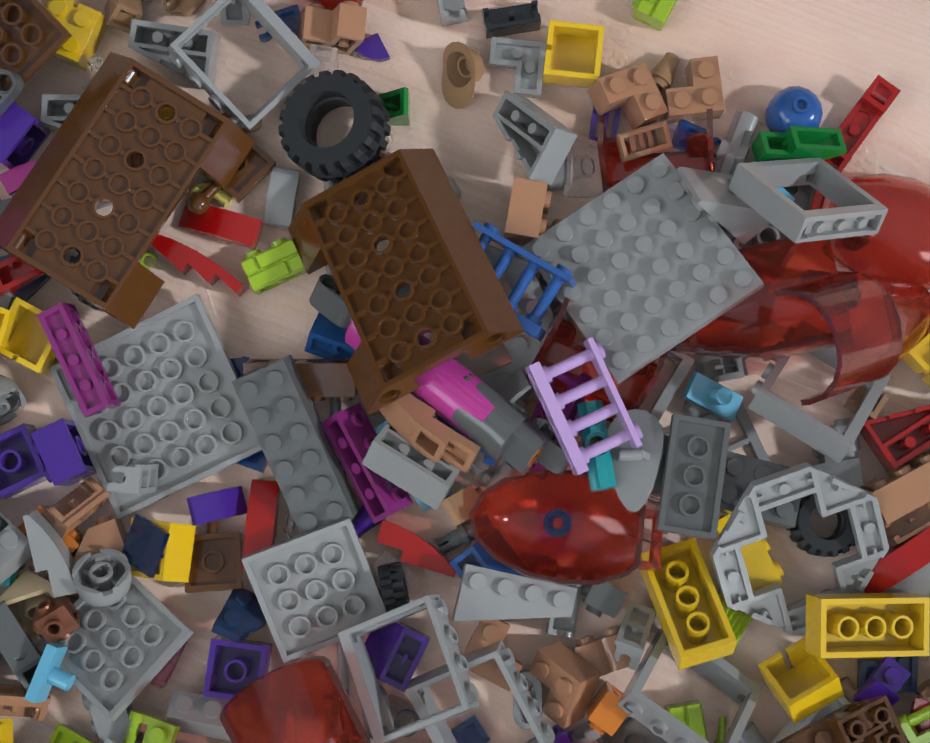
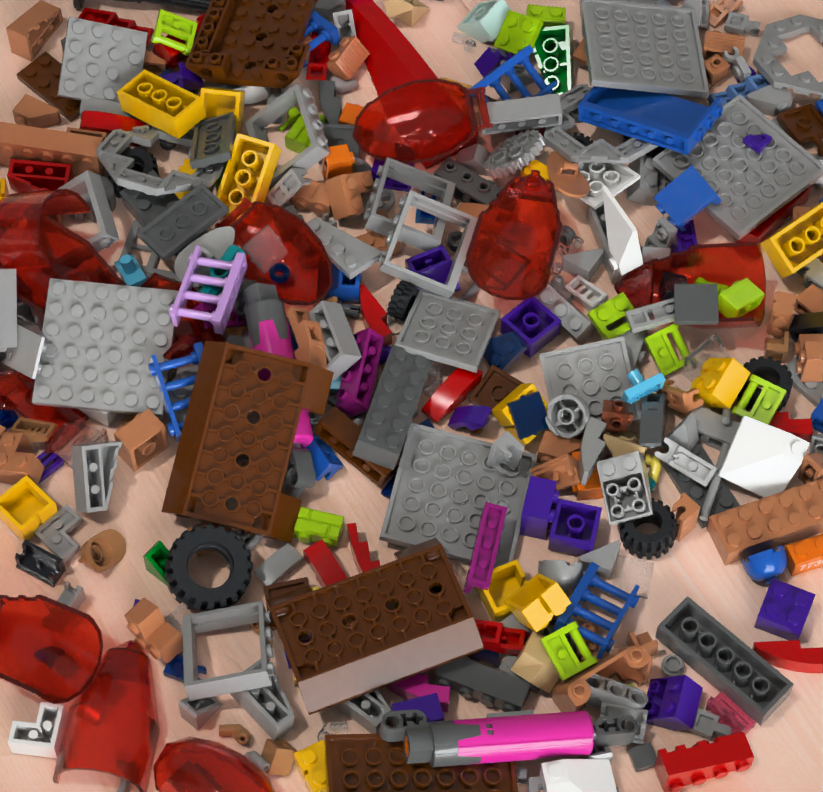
camera: 145 degrees left, 25 degrees down
(590, 531) = (265, 249): none -> clear piece
(761, 617) = (213, 140): none -> dark grey plate

